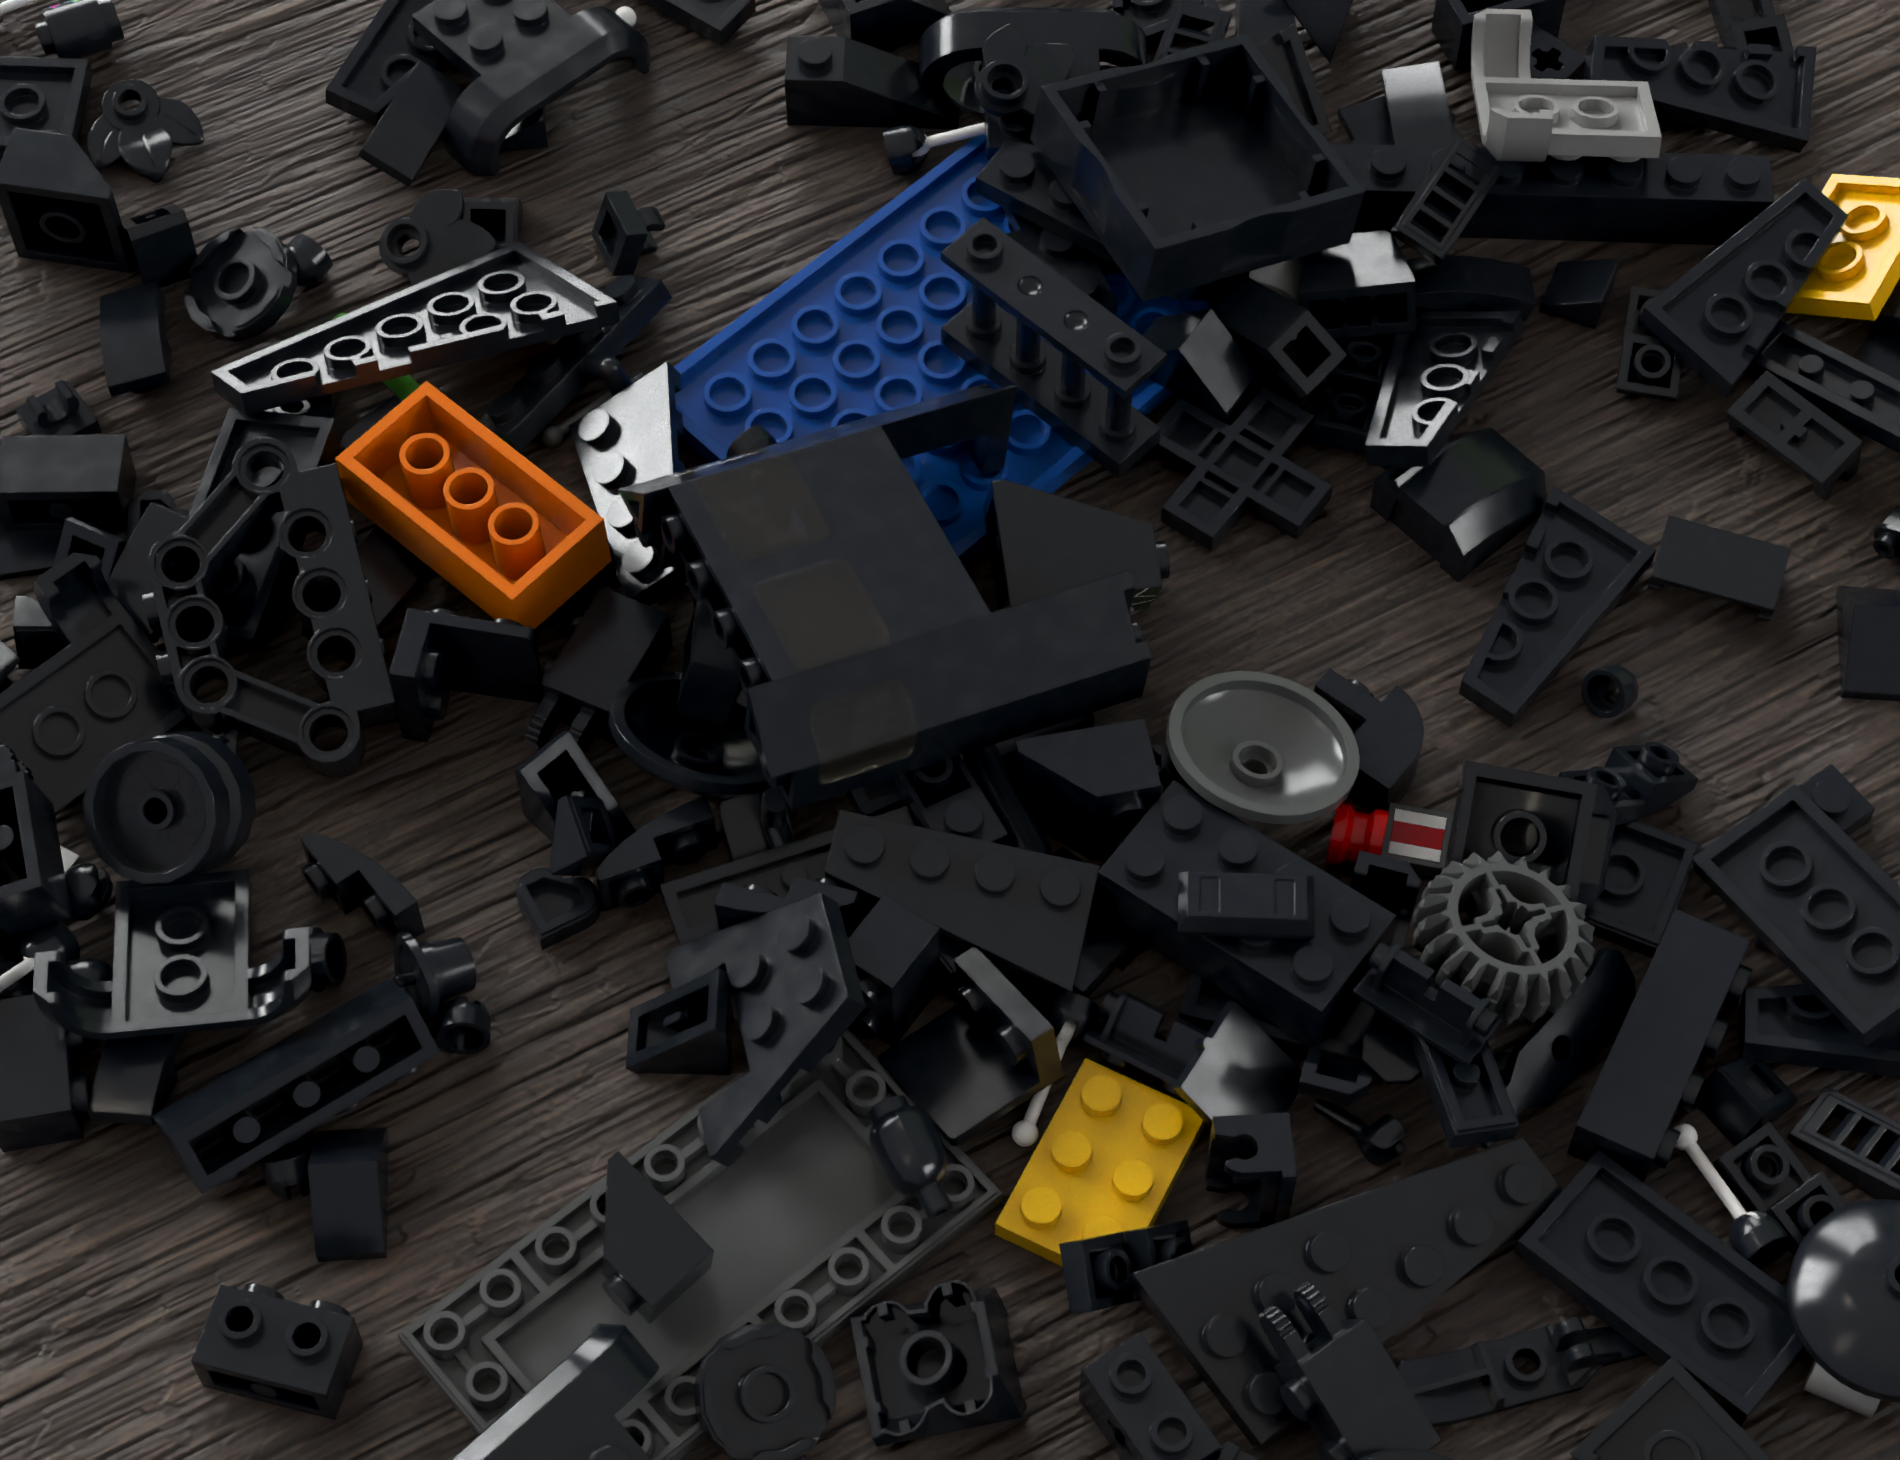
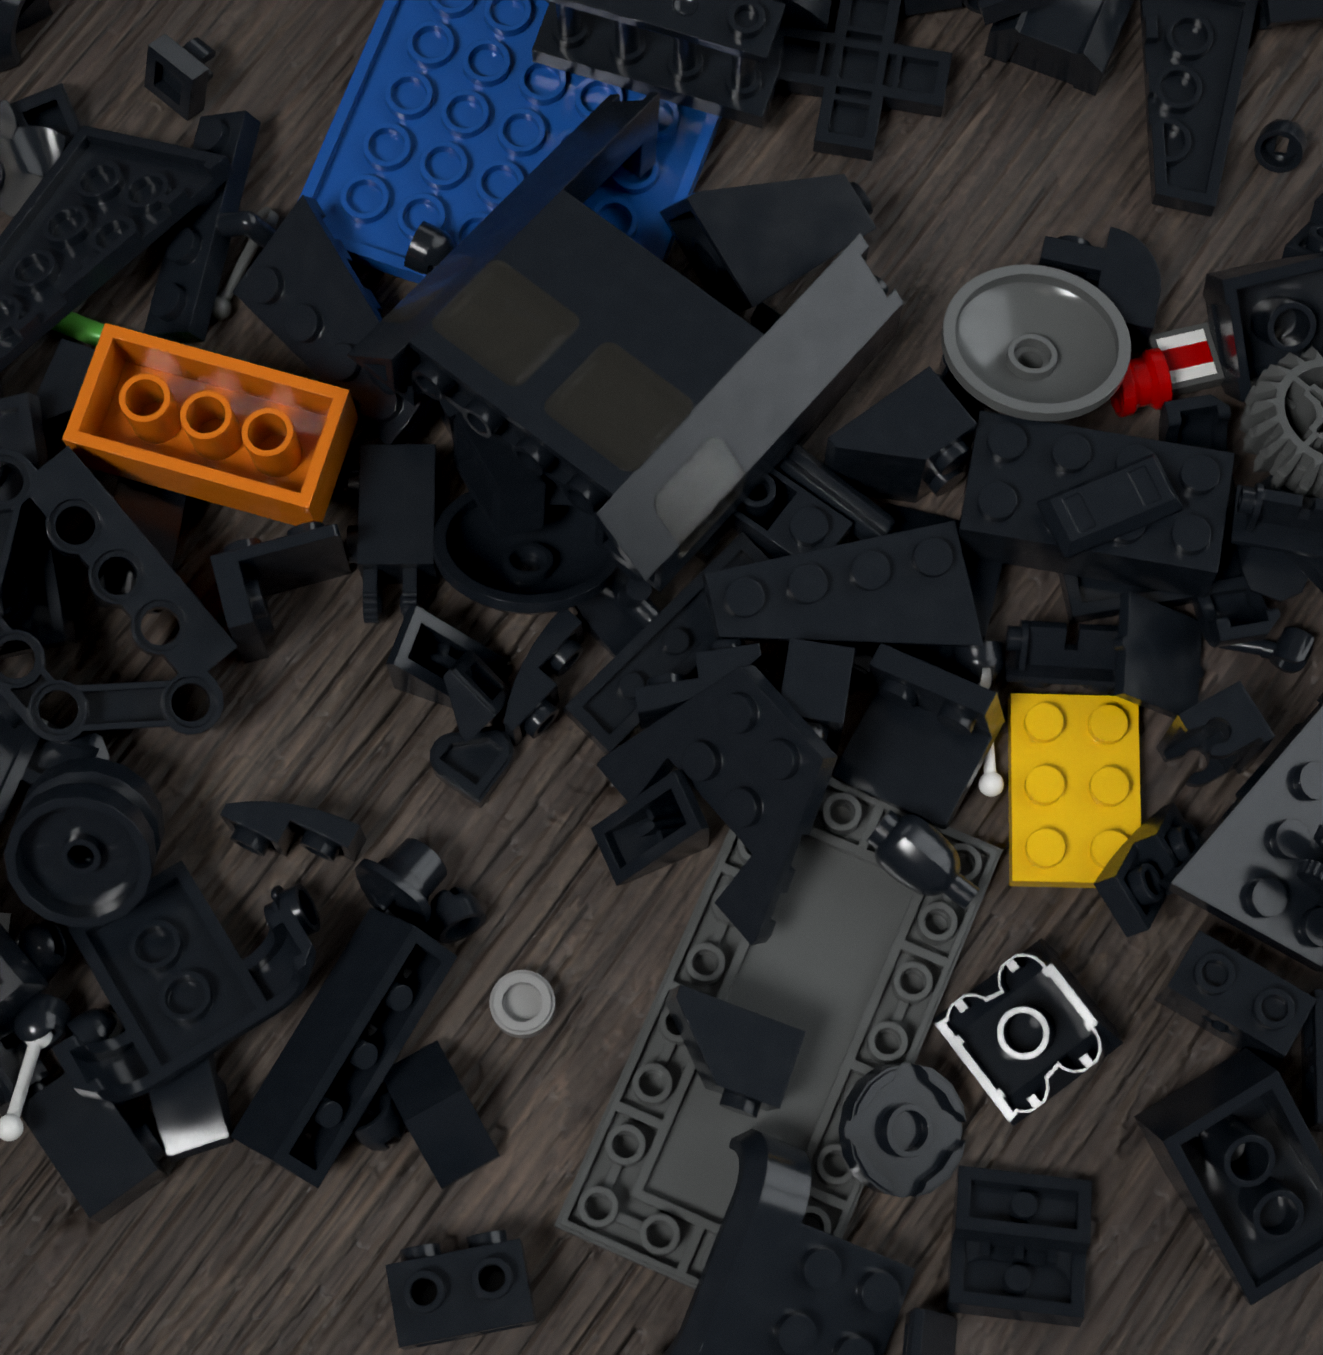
camera: 25 degrees left, 15 degrees up
(481, 1131) = (522, 1004): none -> light grey tile

